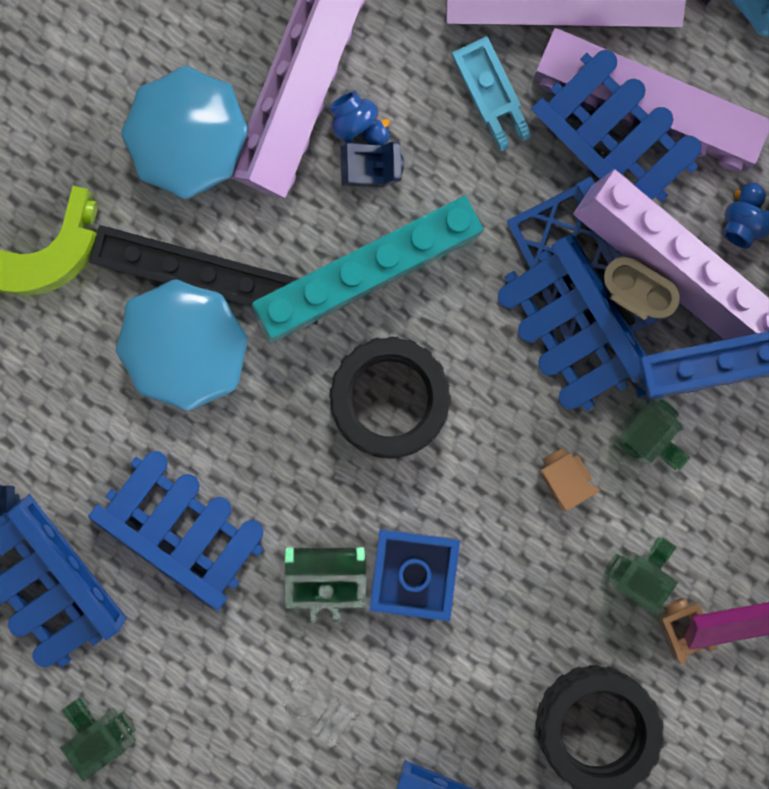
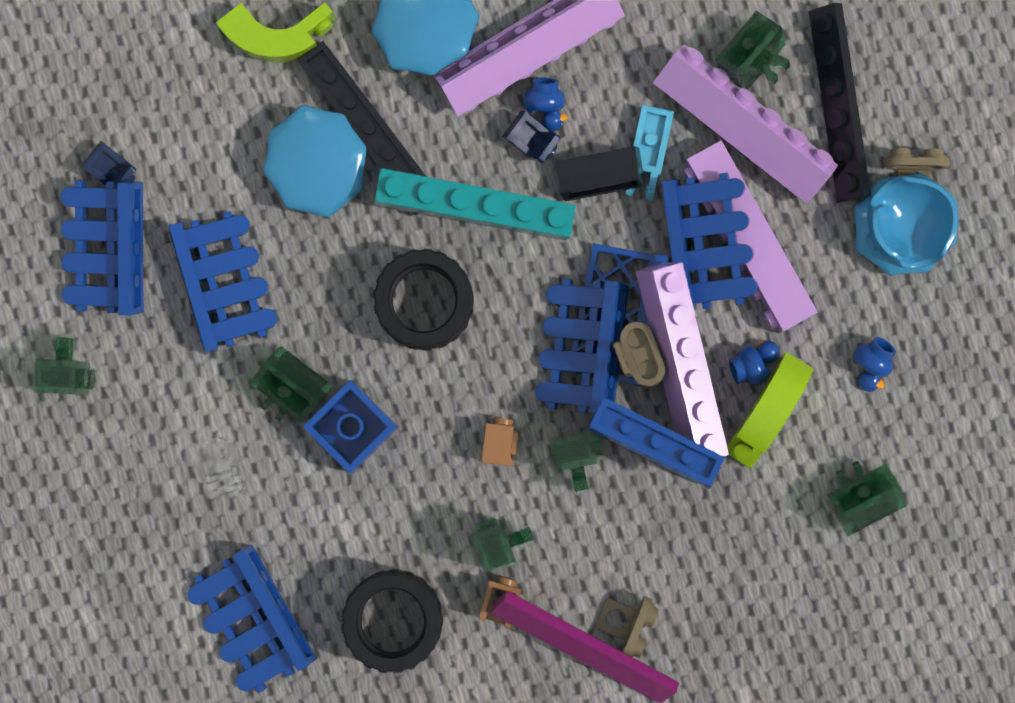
camera: 40 degrees right, 0 degrees up
(463, 148) = (600, 173): none -> black piece

